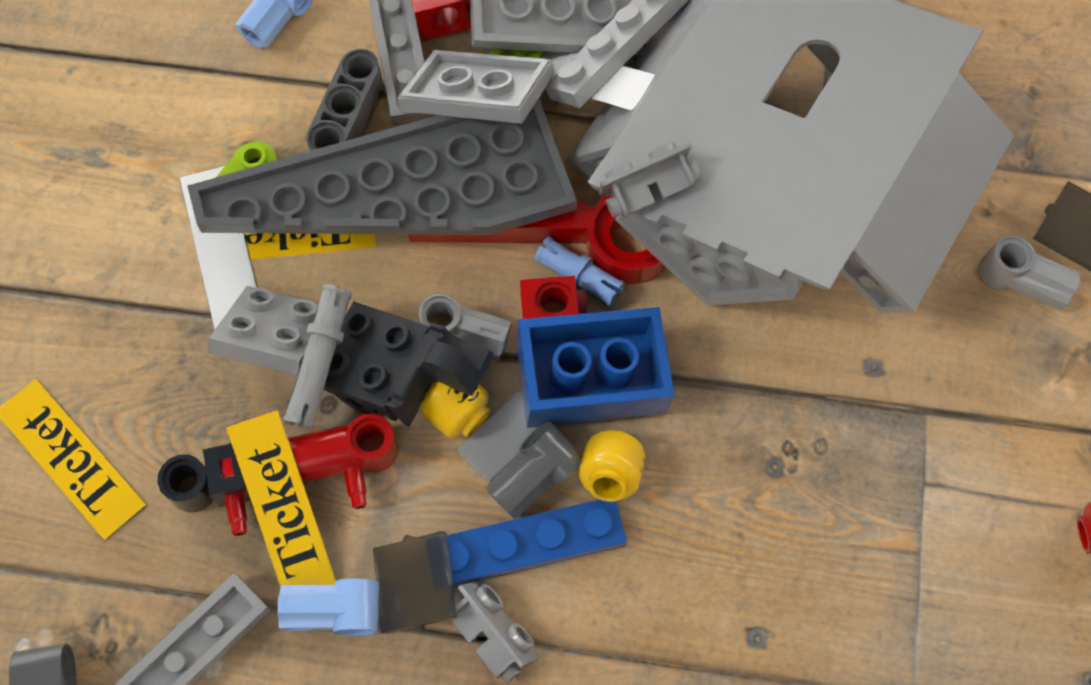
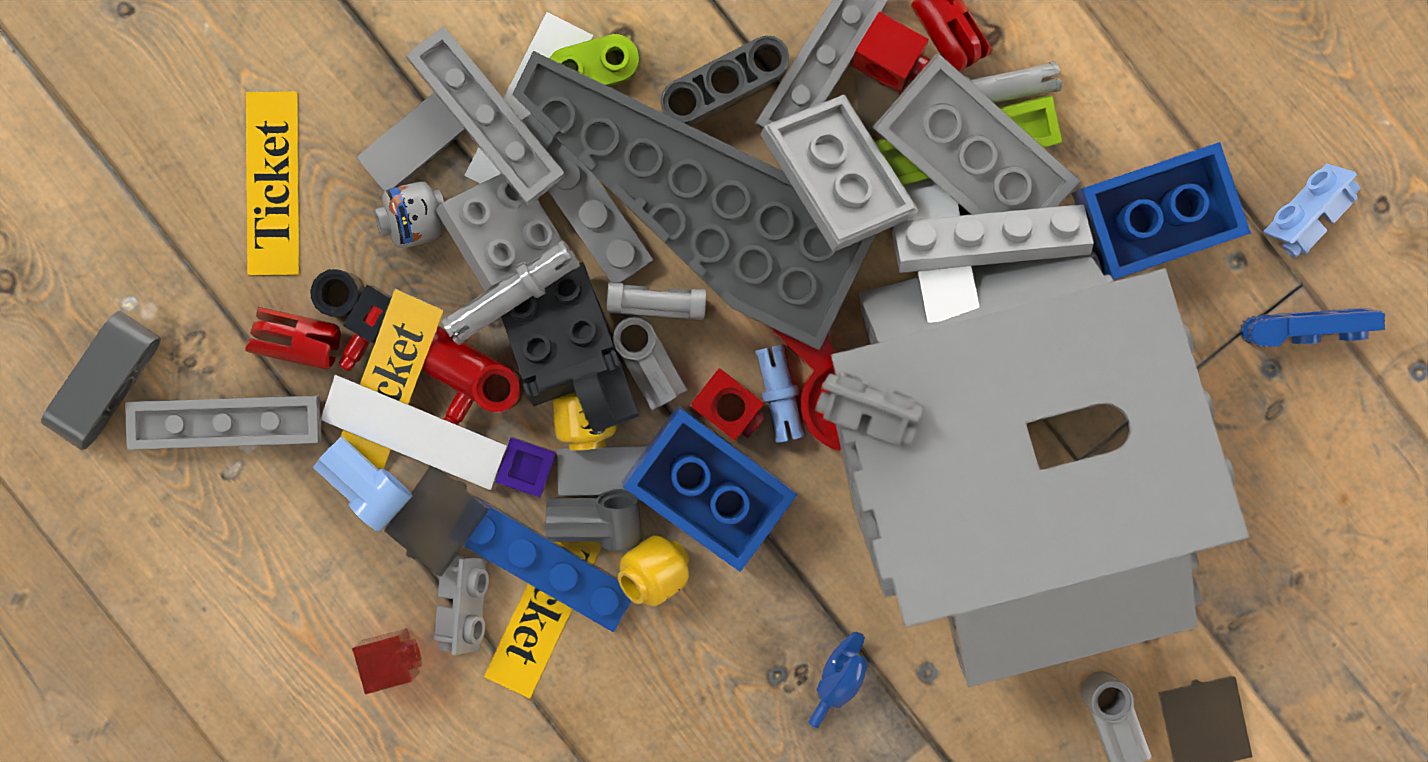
camera: 45 degrees right, 20 degrees up
(158, 321) = (411, 143): none -> light grey tile
(179, 548) = (294, 338): none -> red arm
(192, 263) = (485, 116): none -> light grey plate
(195, 380) = (410, 214): none -> light grey head
(310, 266) = (592, 211): none -> light grey plate
(335, 532) = (413, 432): none -> white sticker
(442, 272) = (644, 302): none -> light grey plate
(446, 481) = (526, 466): none -> dark purple plate
(568, 603) = (533, 633): none -> yellow sticker
(820, 418) = (840, 677): none -> blue hand

